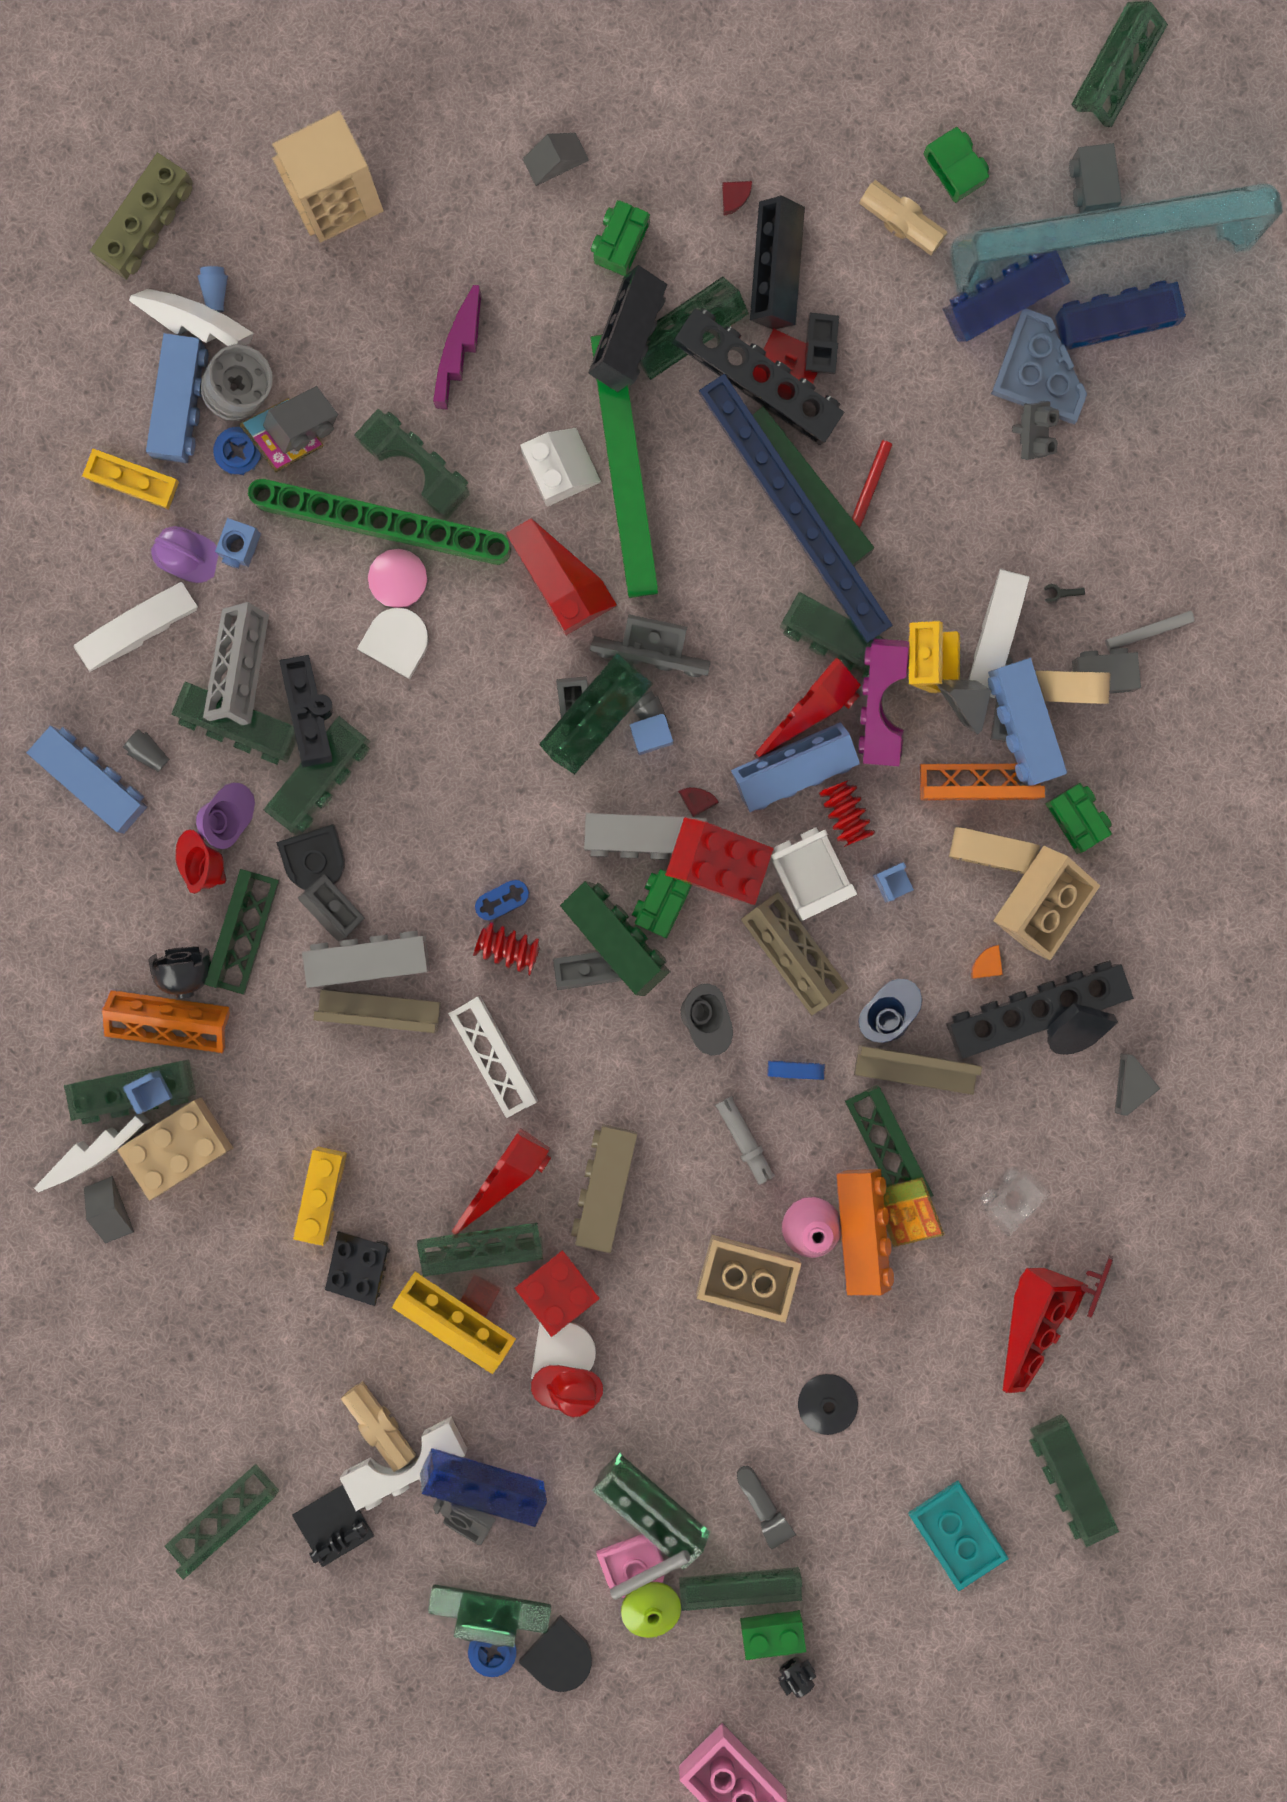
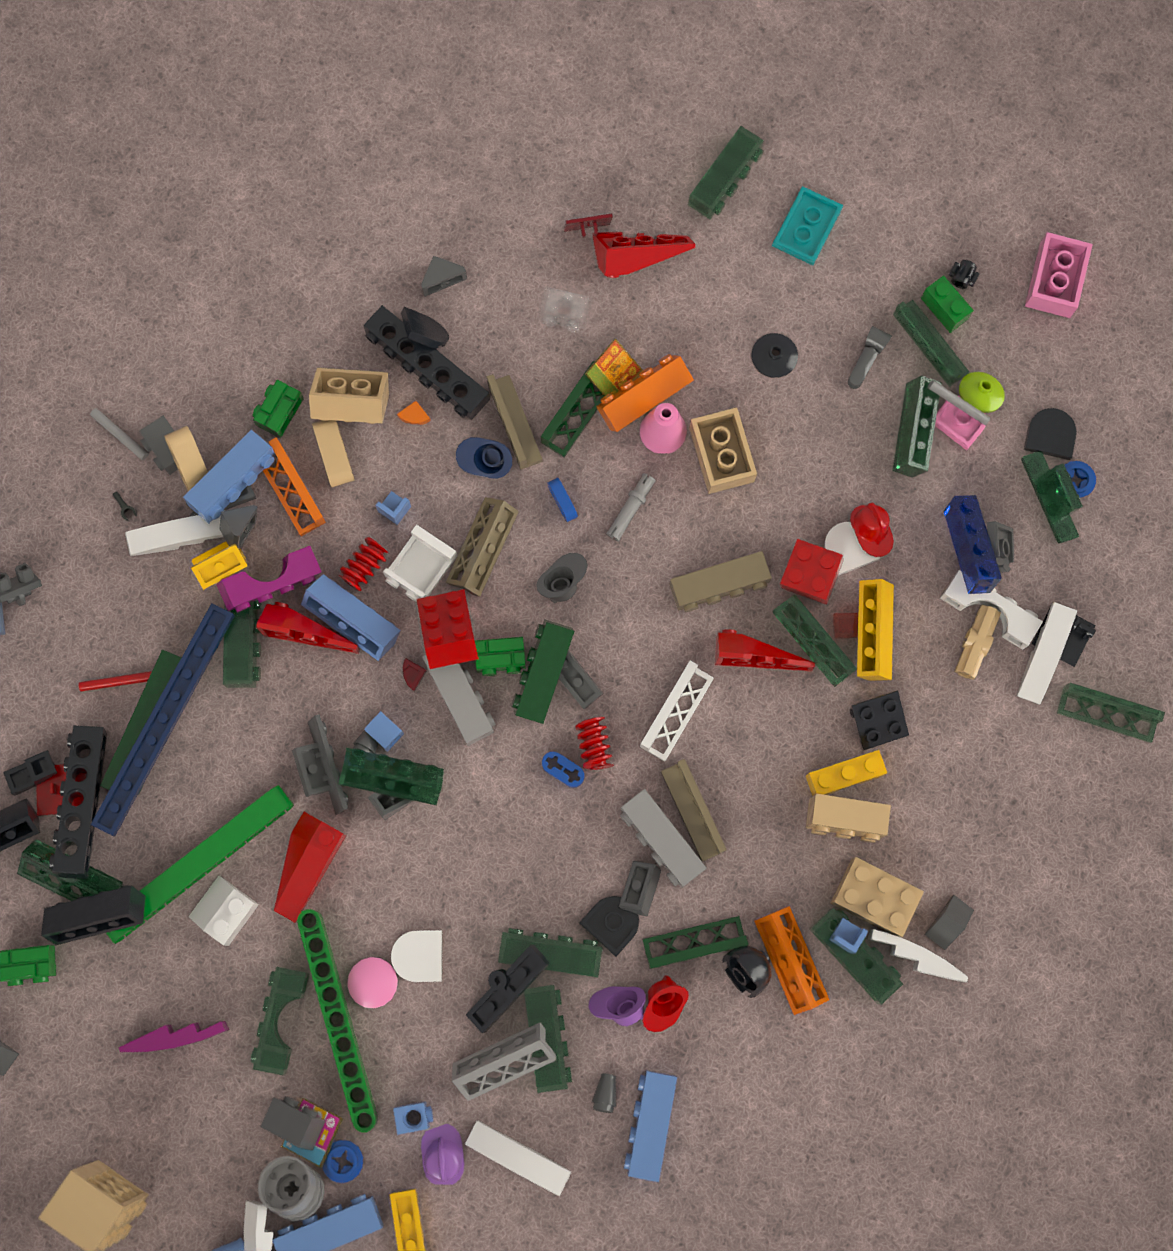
camera: 125 degrees left, 10 degrees down
(271, 1168) = (848, 818): none -> tan brick
(321, 1493) = (1046, 653): none -> white slope

